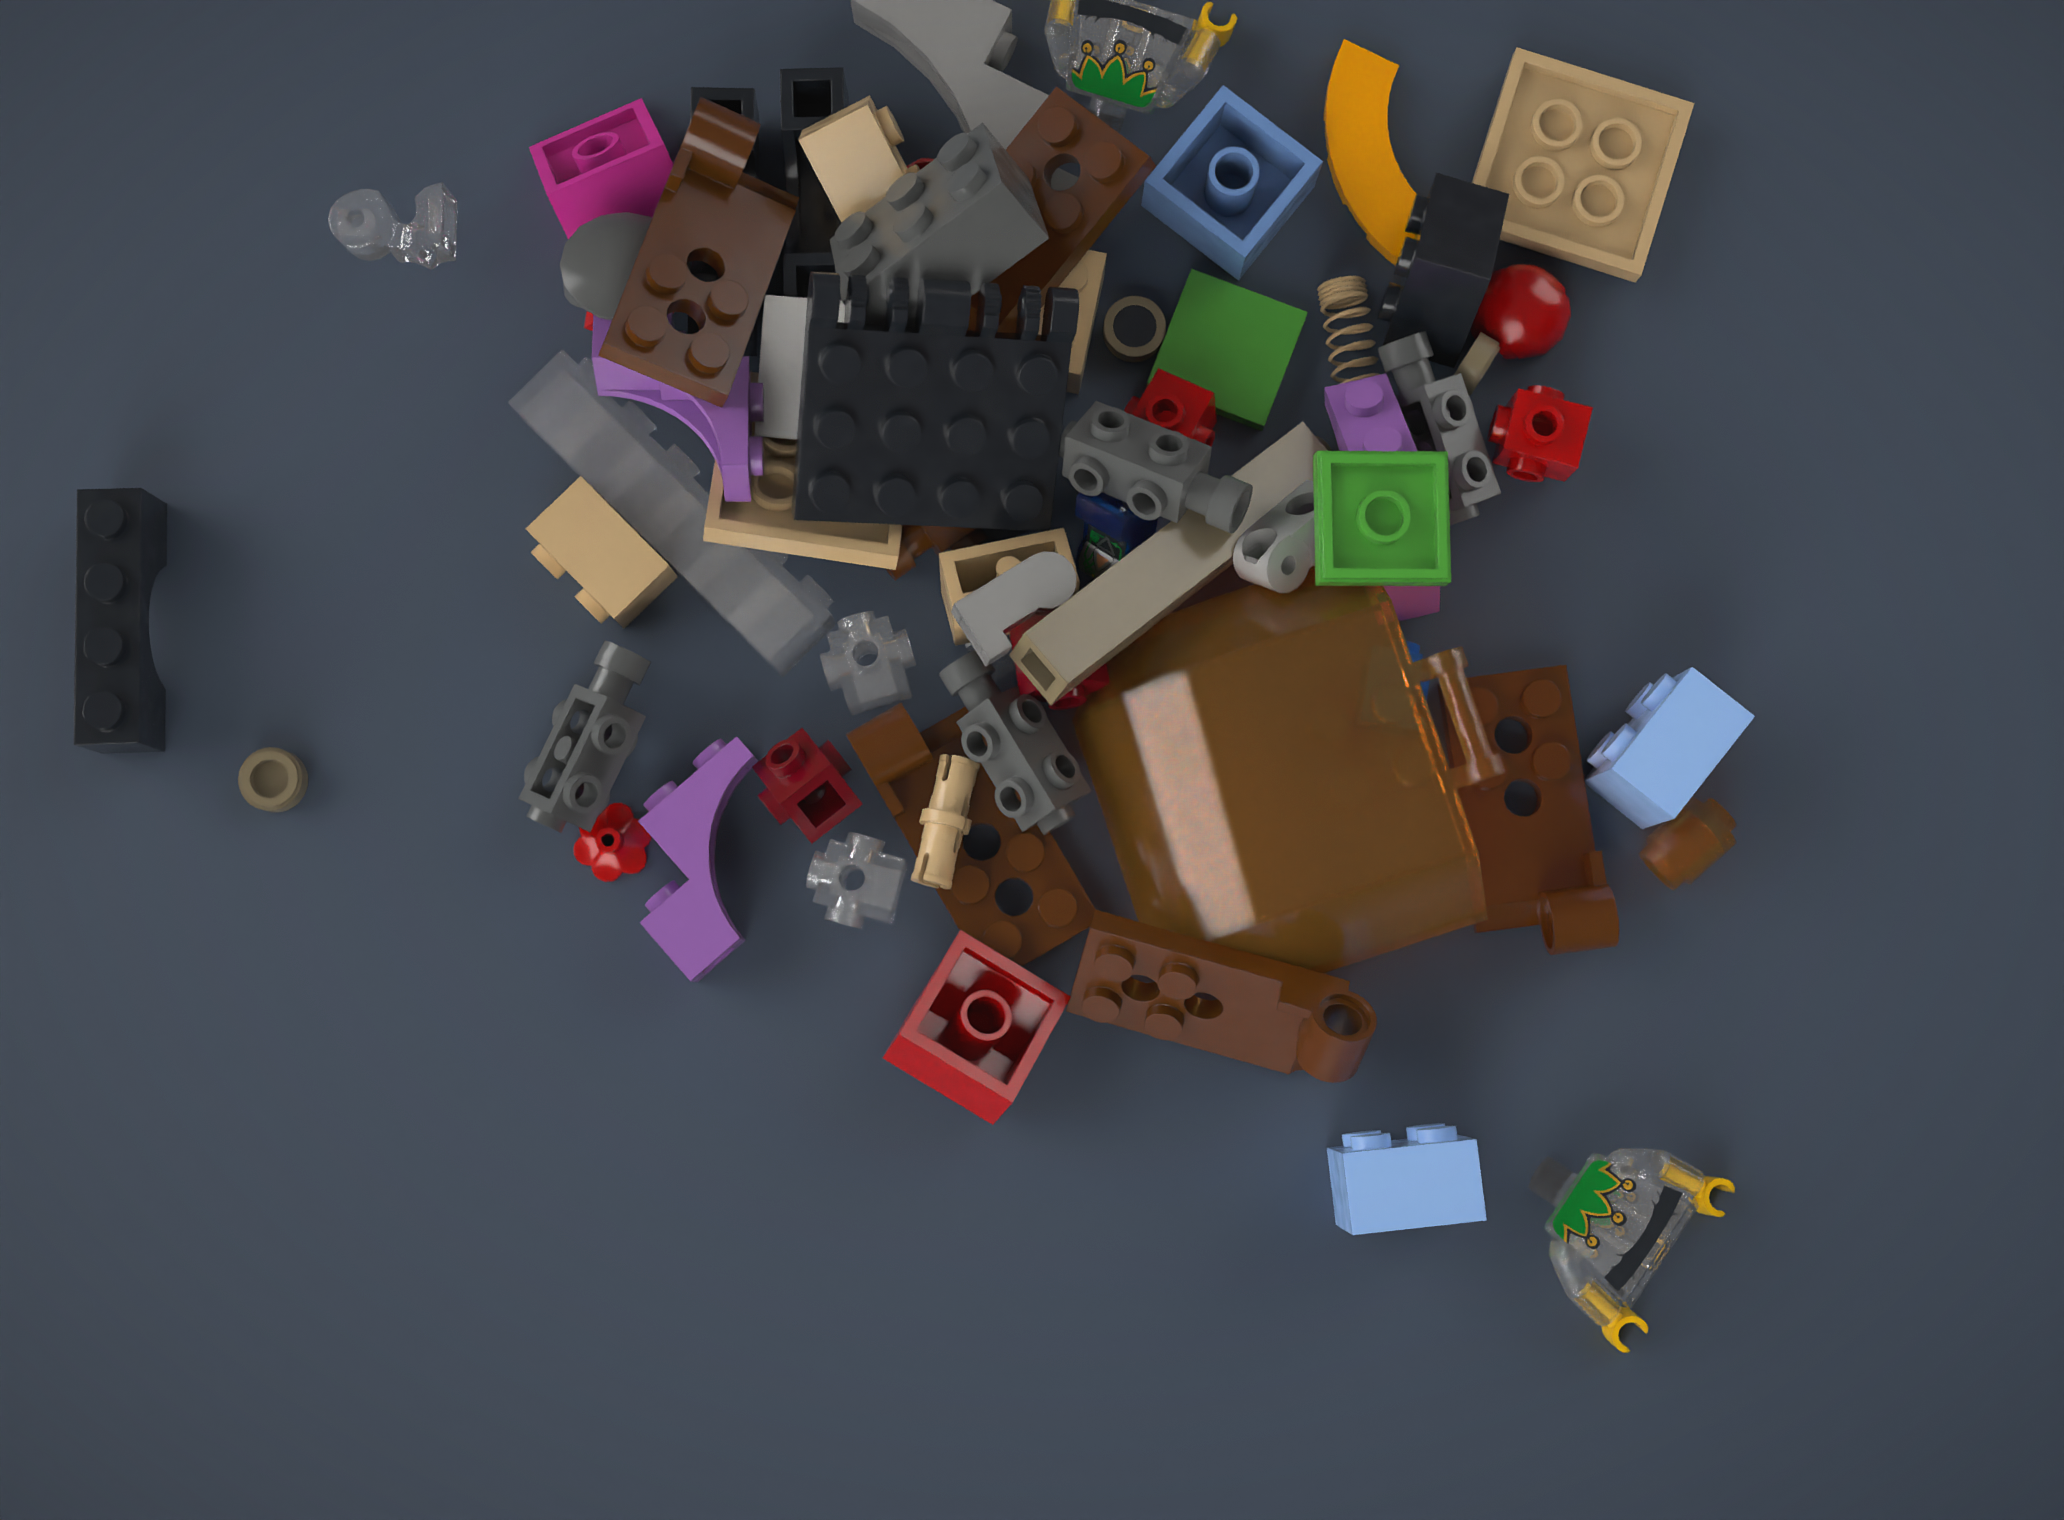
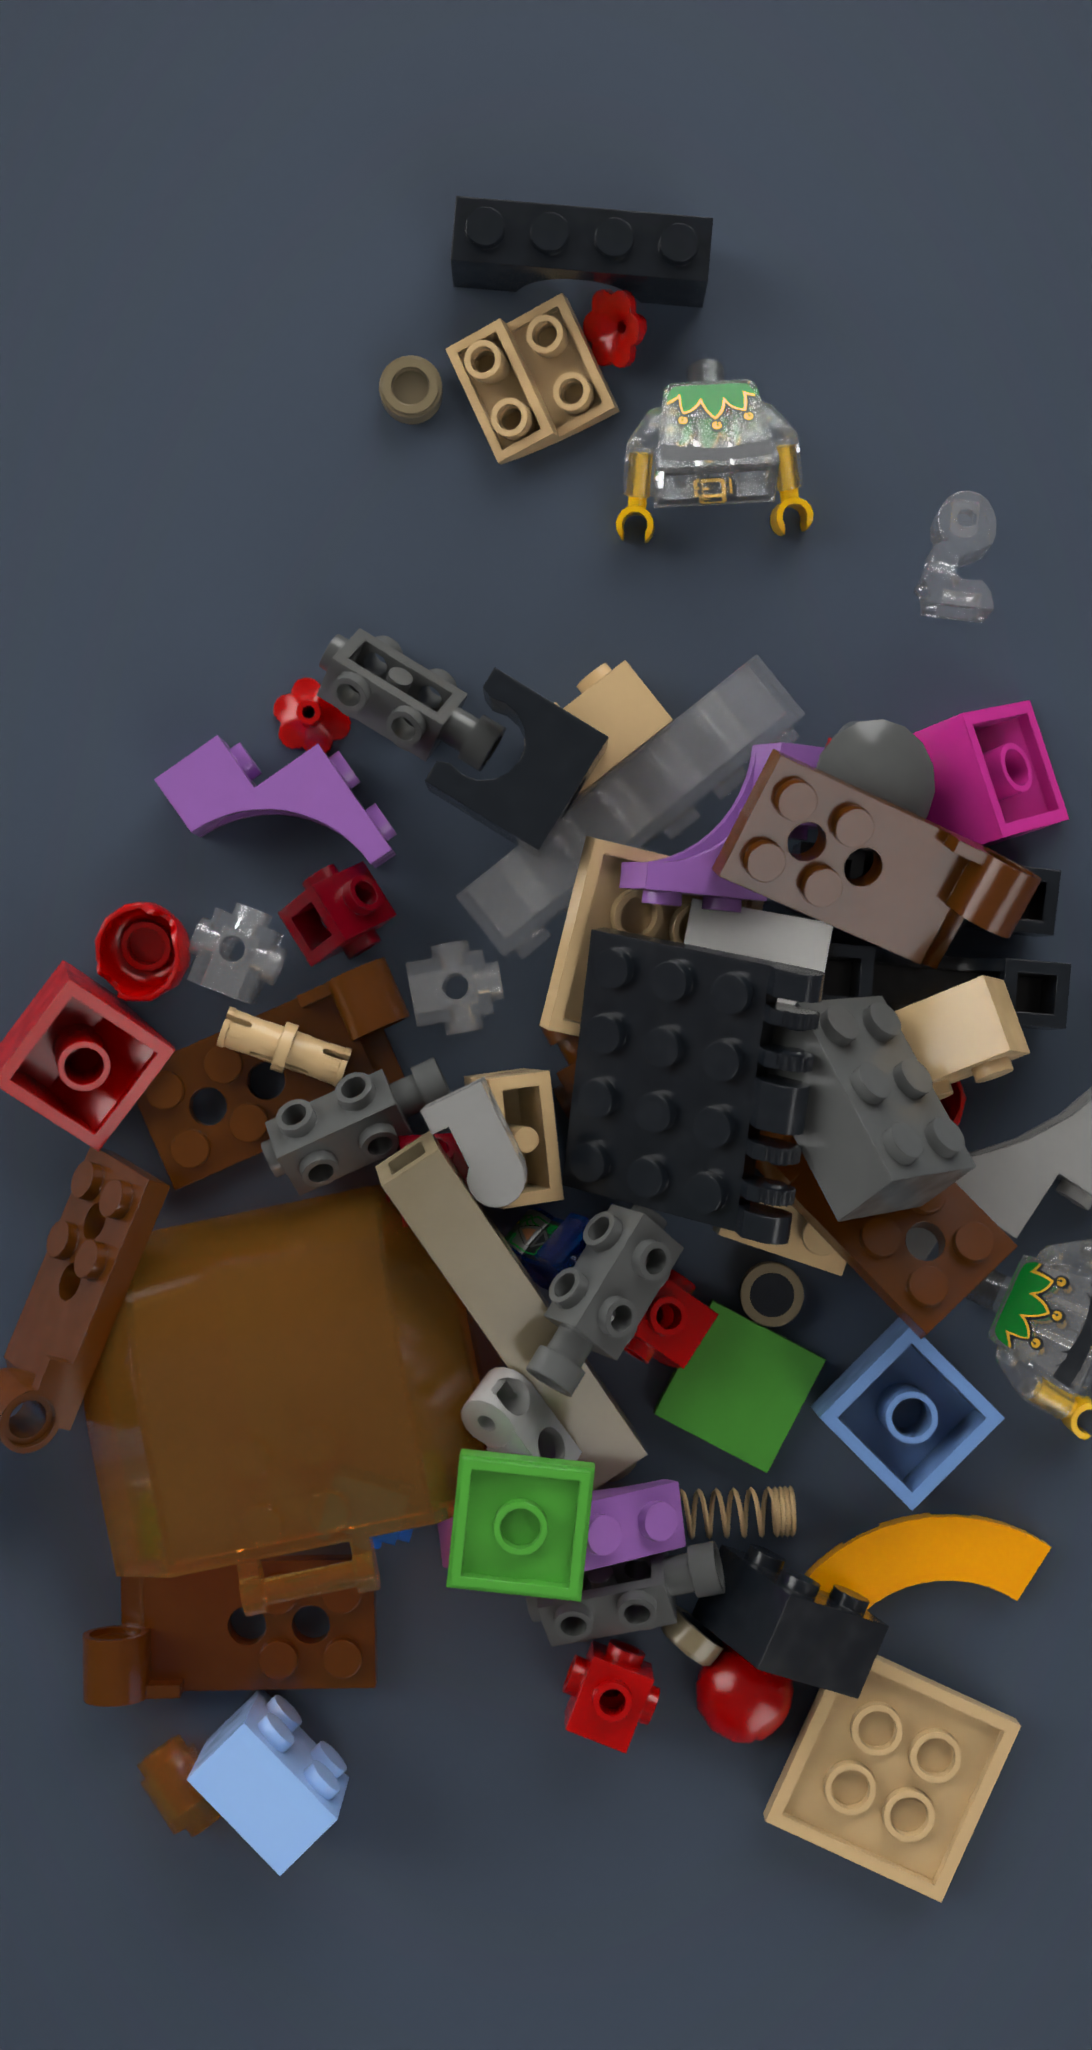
camera: 100 degrees right, 5 degrees up
(194, 582) = (614, 327): none -> red plant
(253, 659) = (532, 380): none -> tan slope
(307, 469) = (713, 448): none -> clear torso
(640, 579) = (545, 782): none -> black piece
(865, 977) = (142, 951): none -> red hair

